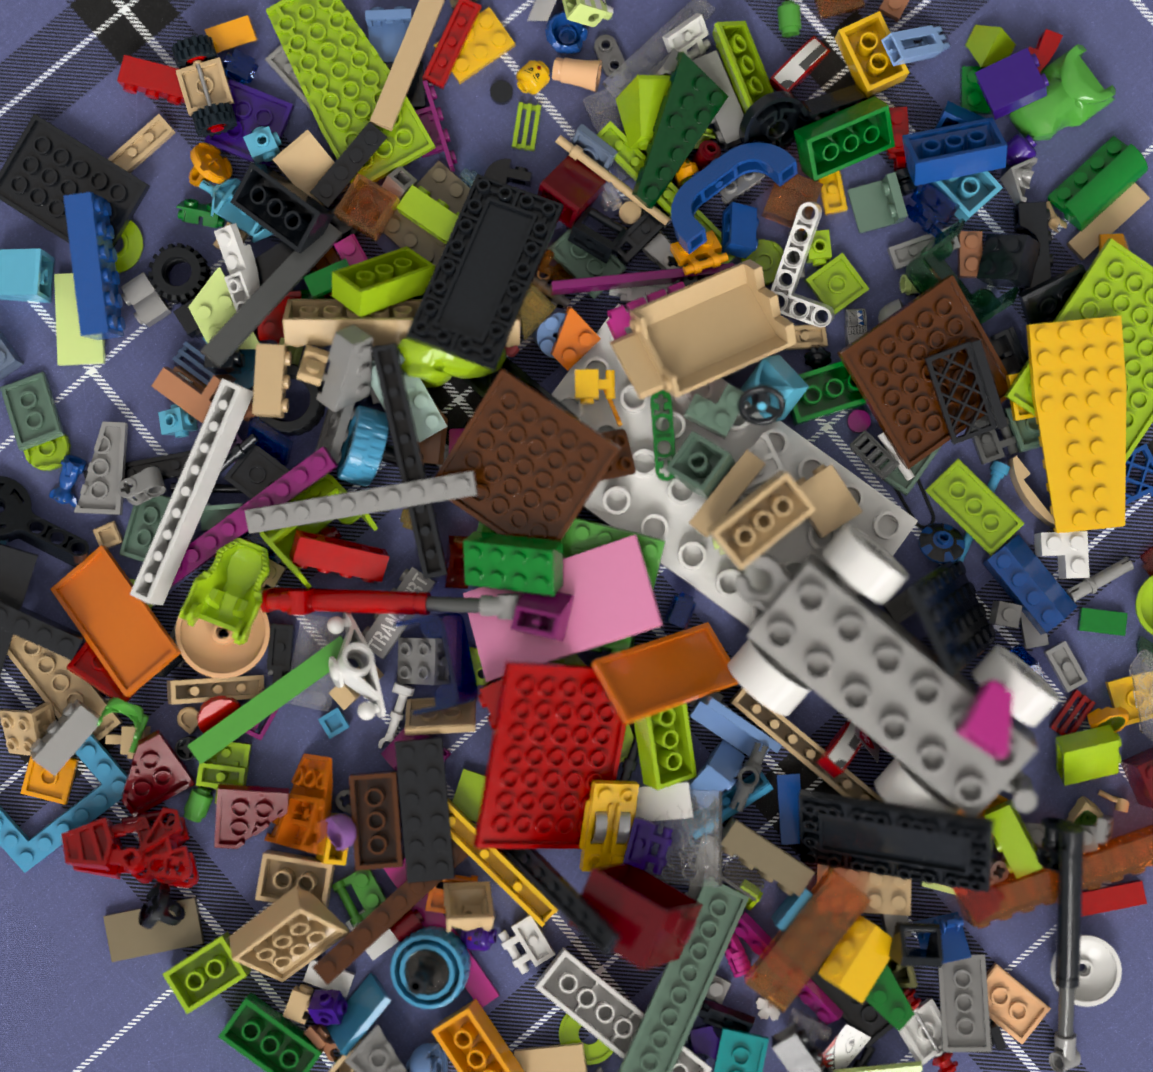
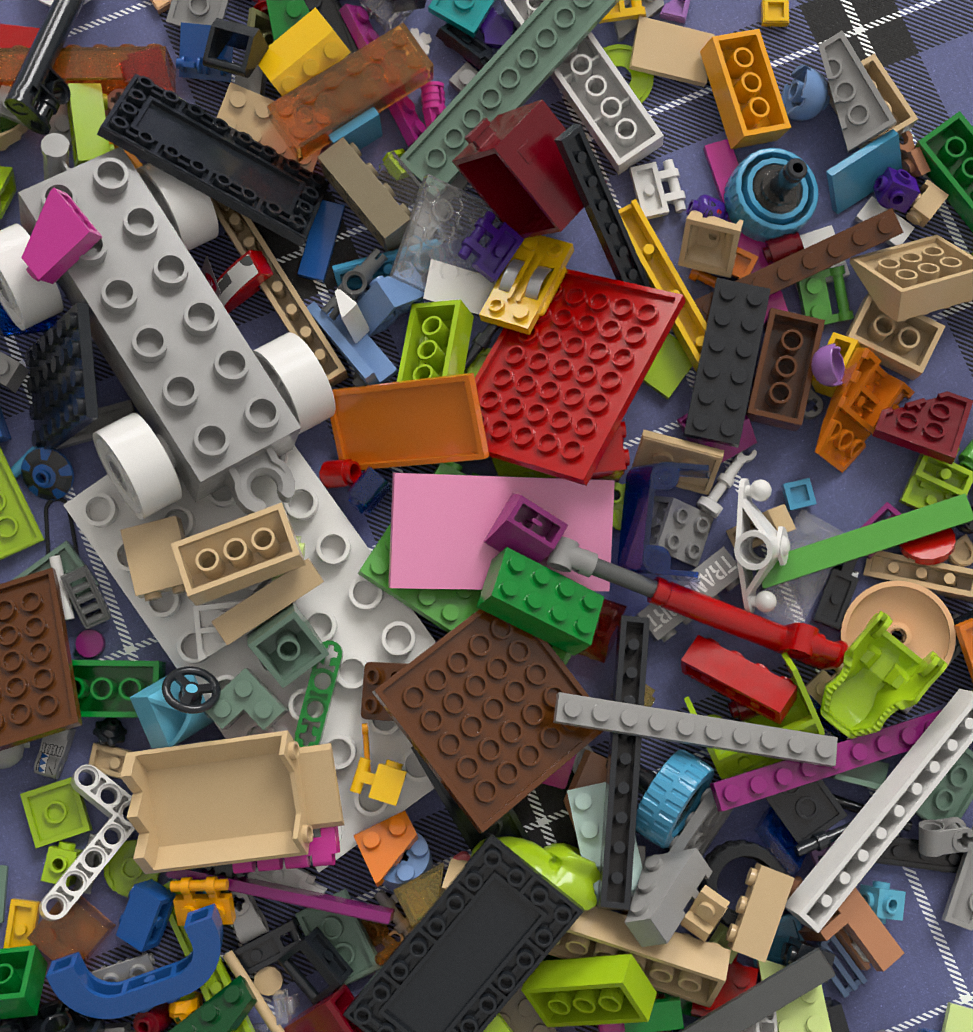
camera: 165 degrees left, 5 degrees down
(708, 618) = (339, 473): none -> red brick
(741, 747) = (351, 316): none -> white slope

